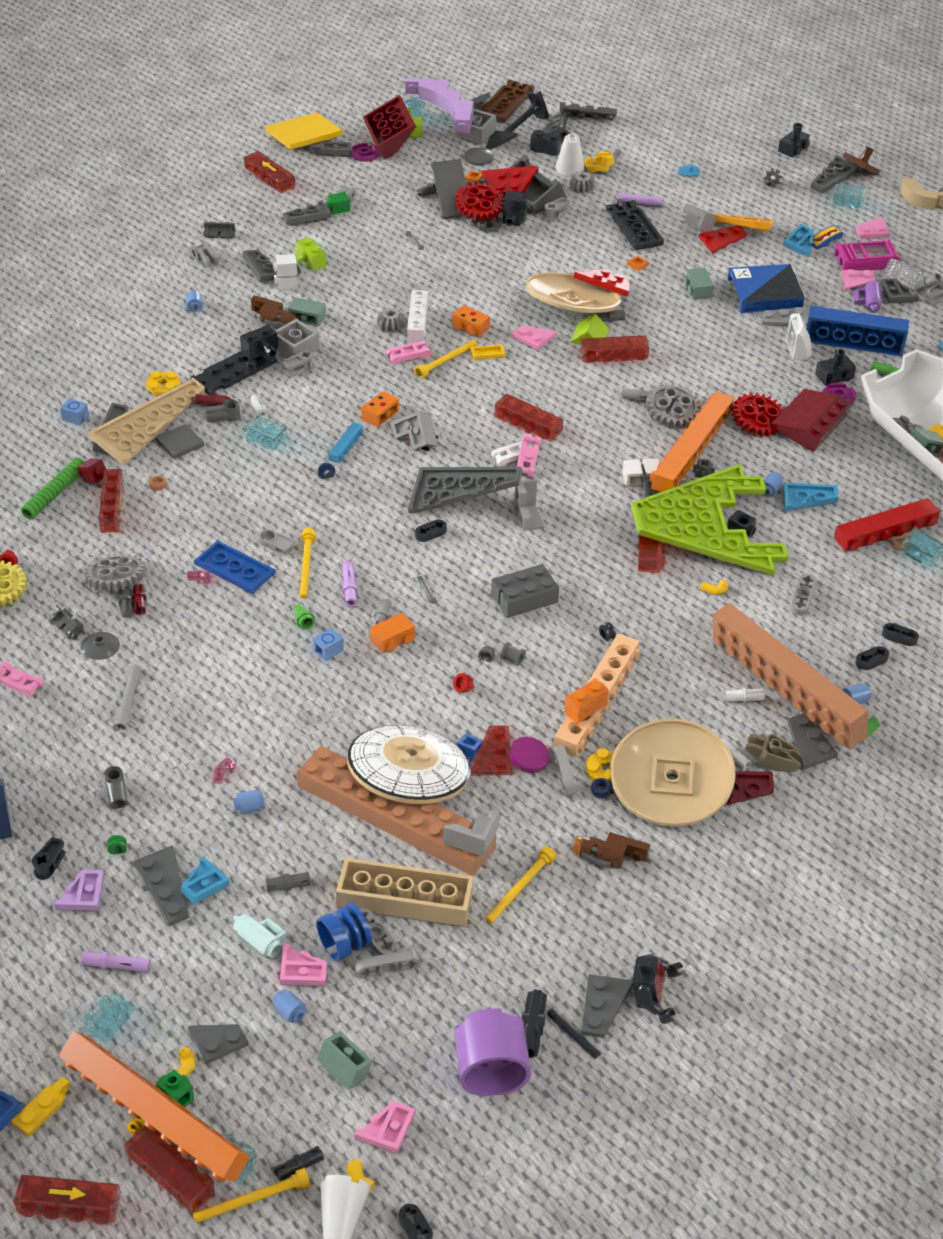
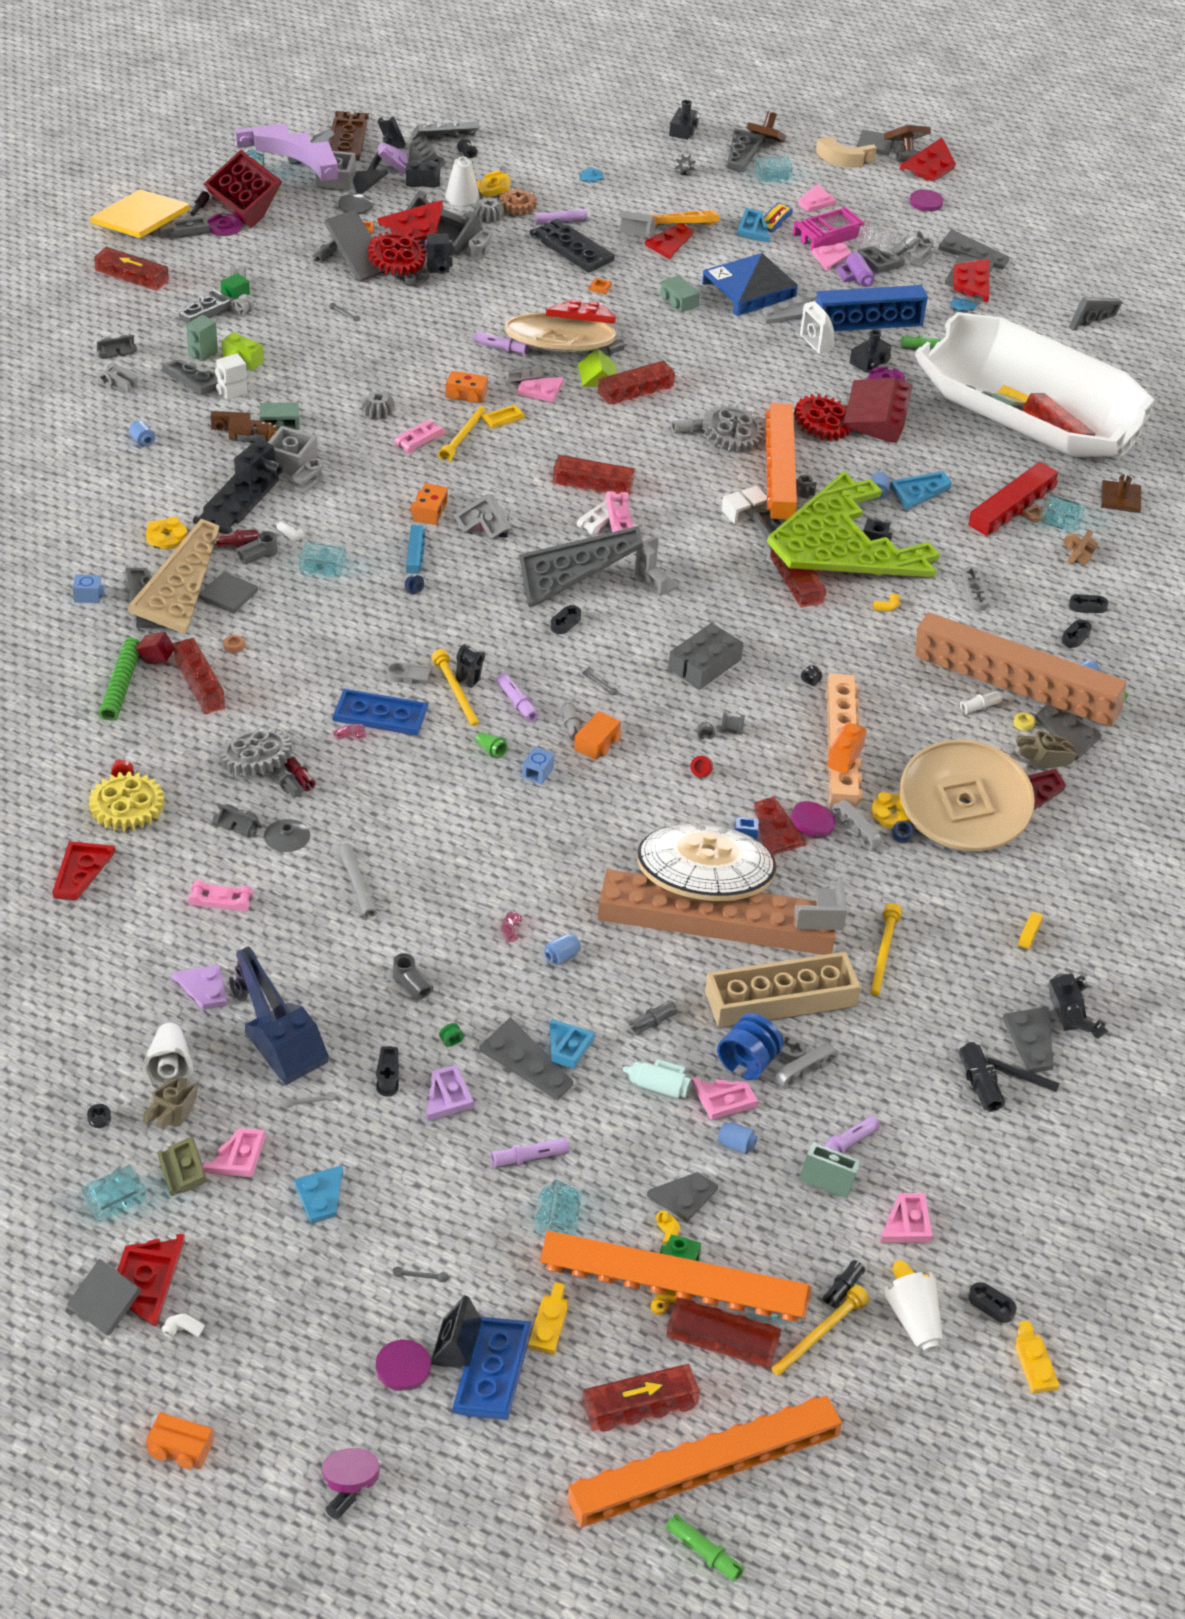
camera: 25 degrees left, 0 degrees up
(283, 236) = (202, 338): none -> sand green brick
(322, 547) = (469, 665): none -> black piece
(335, 218) = (242, 305): none -> light grey wheel
(357, 131) = (200, 202): none -> black axle
(384, 1038) = (853, 1135): none -> lavender pin
(417, 316) = (407, 395): white brick -> none
(492, 1053) = (973, 1113): medium lavender brick -> none
(513, 286) = (508, 344): none -> lavender pin
(526, 321) = (524, 373): none -> light grey piece
(529, 122) = (393, 156): none -> lavender wing
(596, 129) = (466, 148): none -> black bush
(611, 180) = (518, 201): none -> nougat gear
(612, 851) = (952, 890): reddish brown plate -> none
(660, 907) = (1030, 930): none -> yellow beam
(774, 722) = (1024, 721): none -> light yellow tile
(918, 587) = (1081, 548): none -> medium nougat hips

